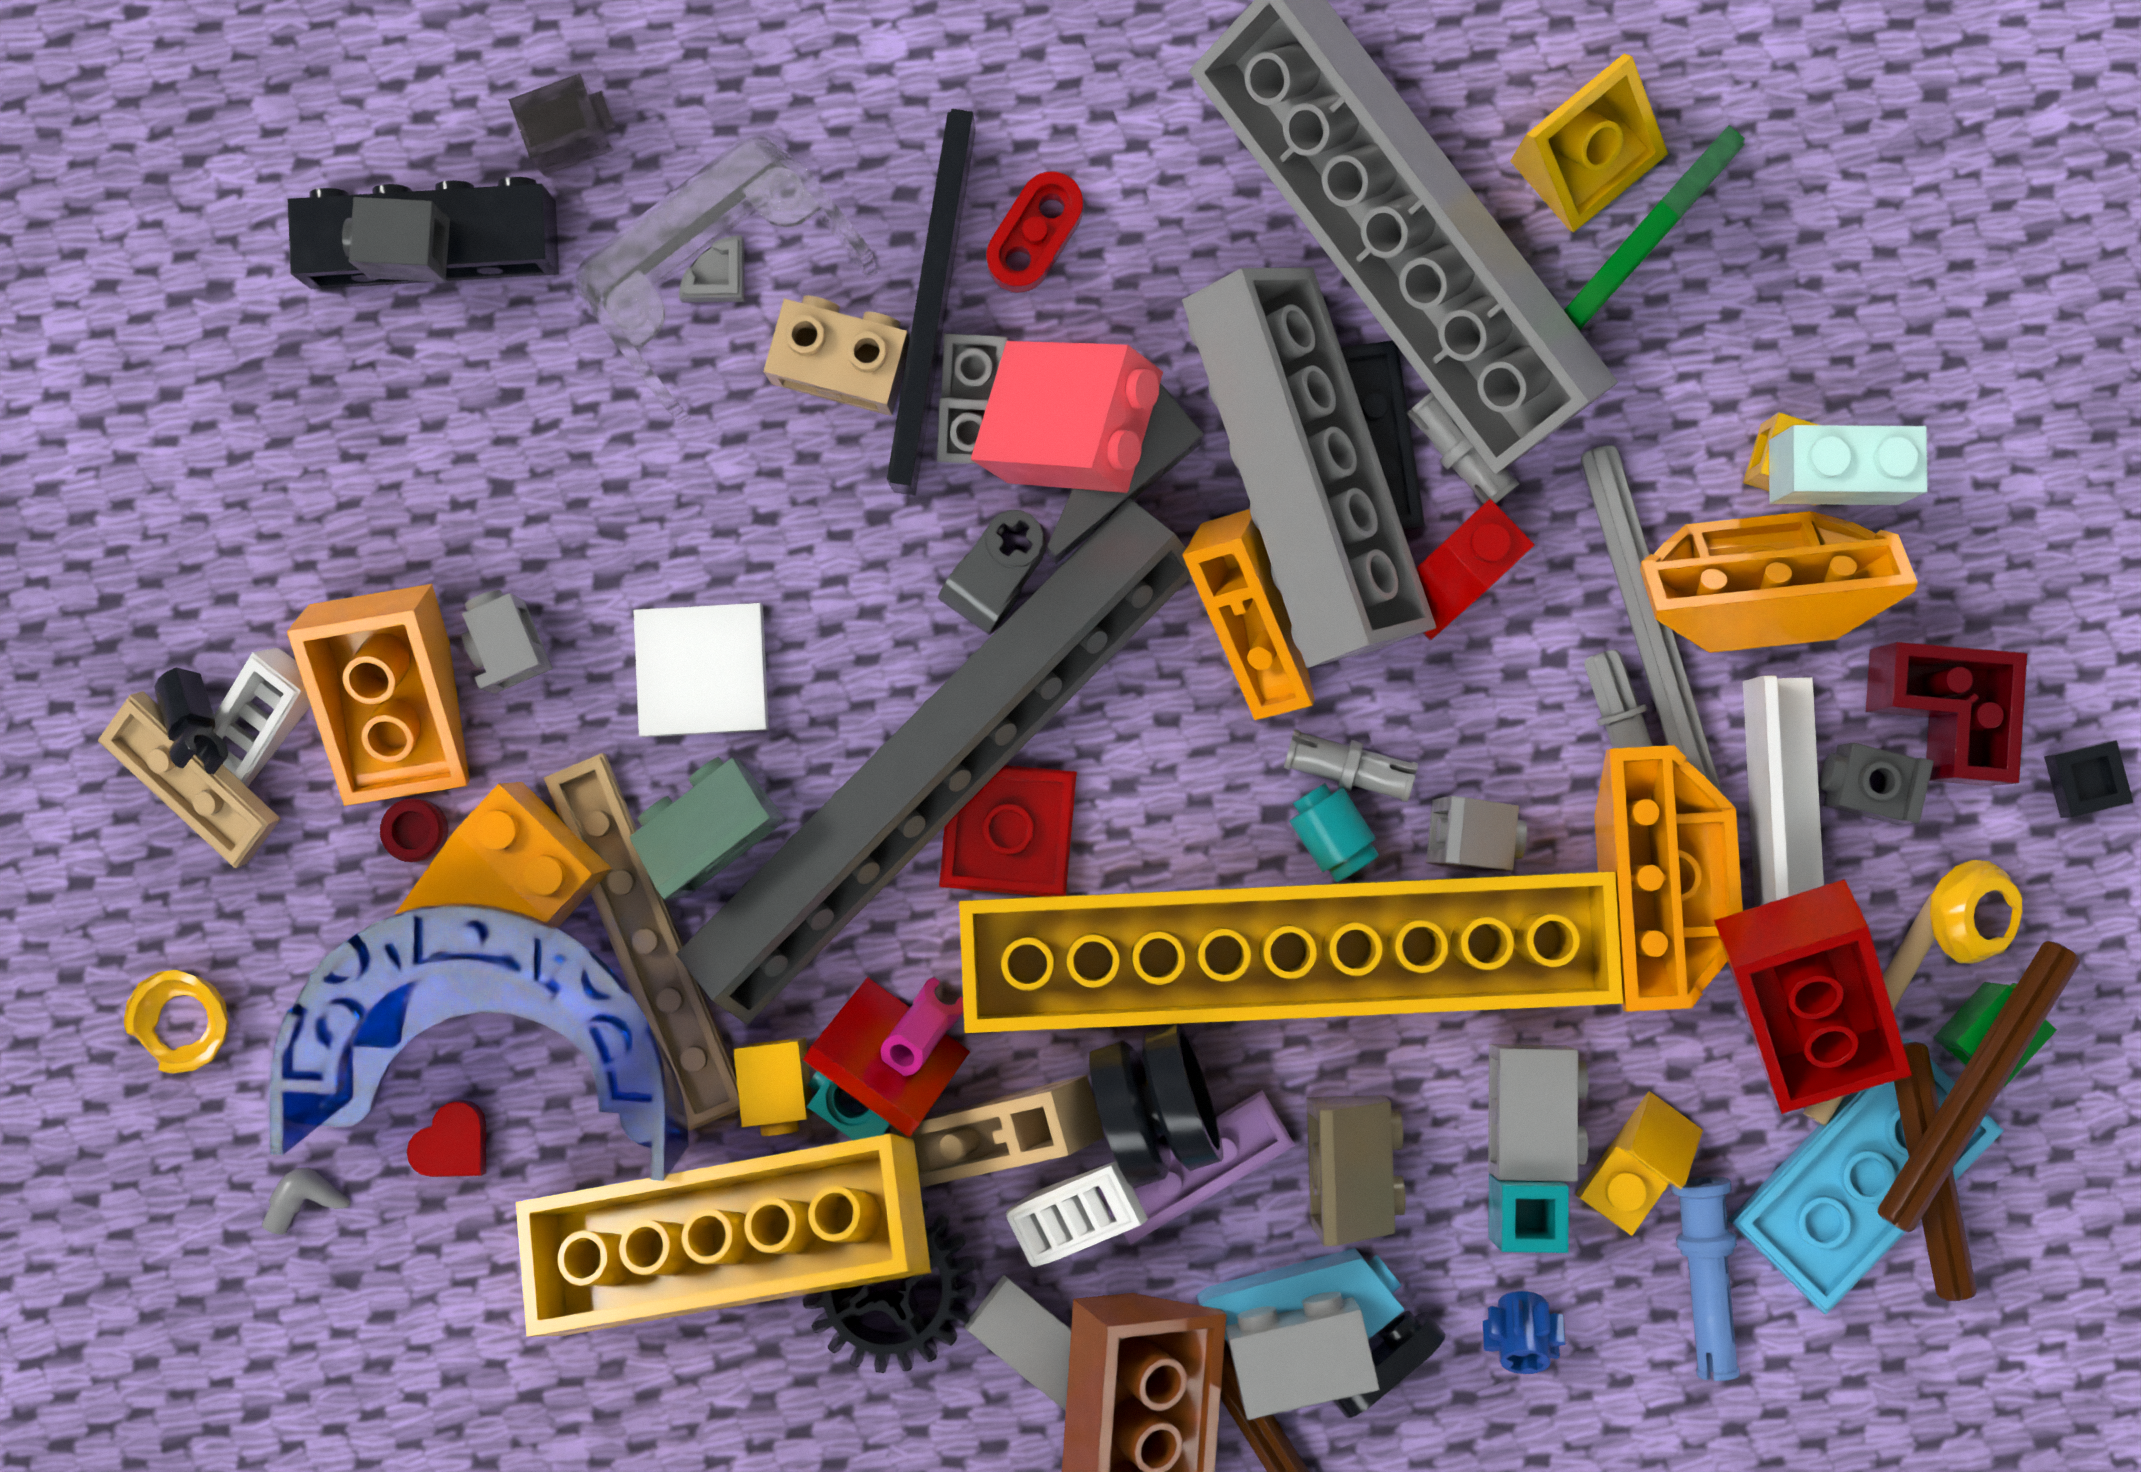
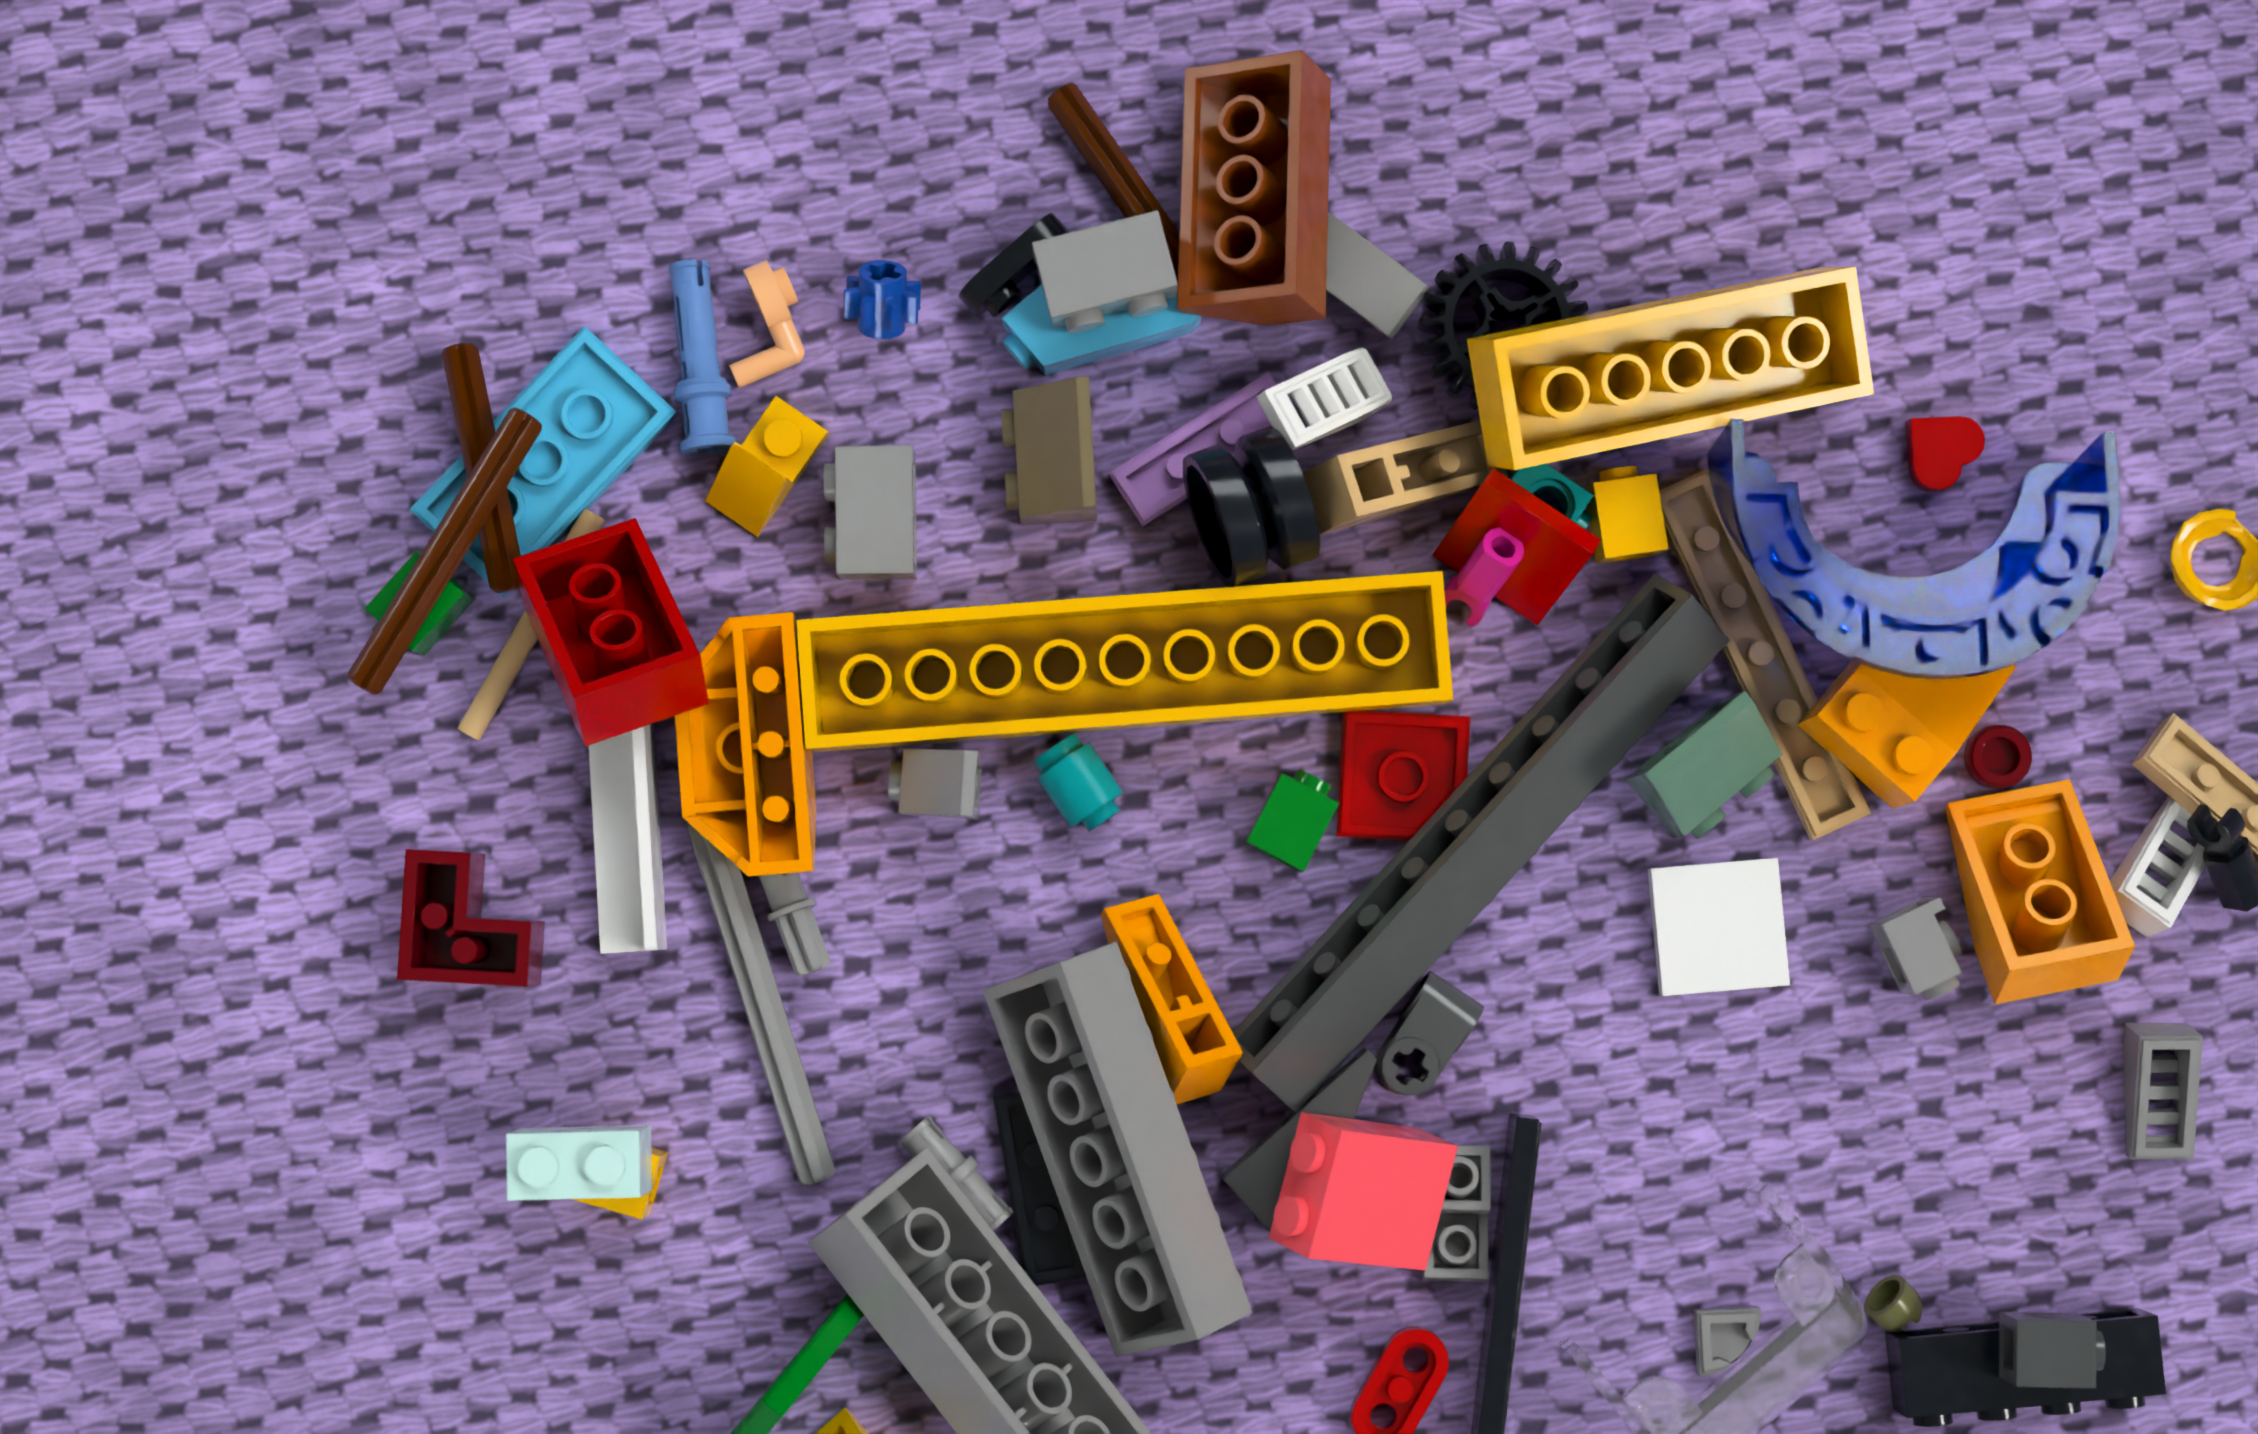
camera: 170 degrees right, 0 degrees up
(292, 1191) = (2095, 397): light grey animal -> none
(293, 524) = (2138, 1066): none -> light grey slope
(549, 297) = (1893, 1304): none -> olive hinge
(838, 354) = (1595, 1252): tan brick -> none
(1120, 788) = (1293, 819): none -> green brick
(1351, 765) = (1063, 850): light grey pin -> none
(1470, 563) = (950, 1055): red slope -> none
(1528, 1215) = (881, 411): teal brick -> none
(1634, 1339) = (773, 296): none -> light nougat plate
(1774, 580) = (646, 1050): light orange wedge -> none
(1901, 790) = (511, 842): dark grey brick -> none
(1954, 909) = (460, 727): yellow piece -> none
(2088, 779) = (323, 859): black plate -> none

